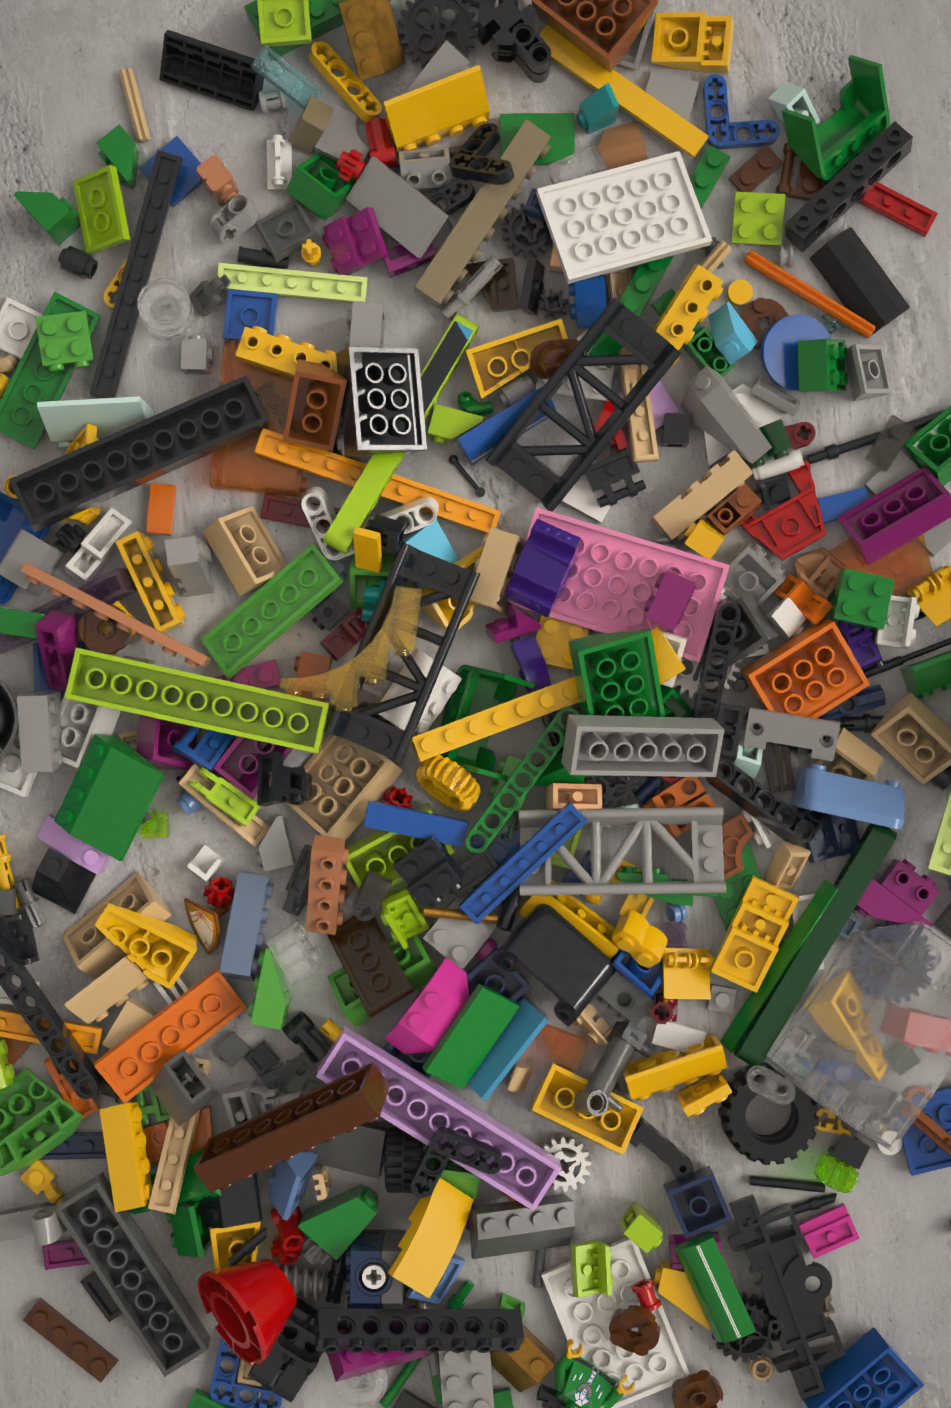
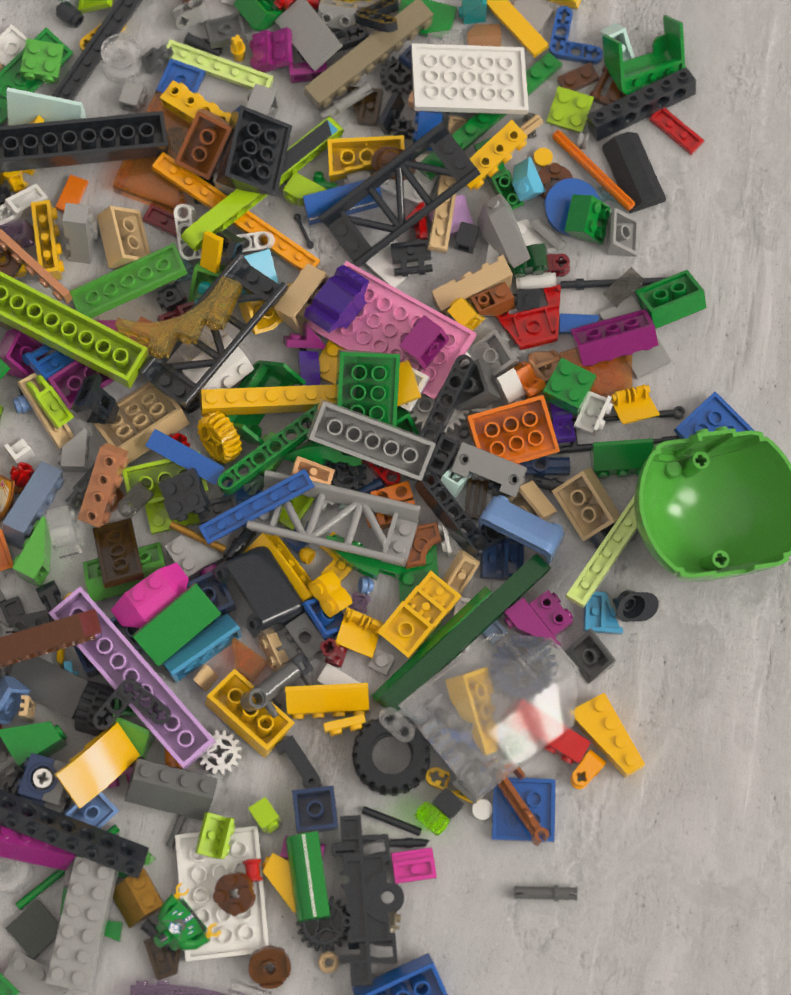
camera: 15 degrees right, 15 degrees down
(403, 917) = (154, 527): lime bracket -> none

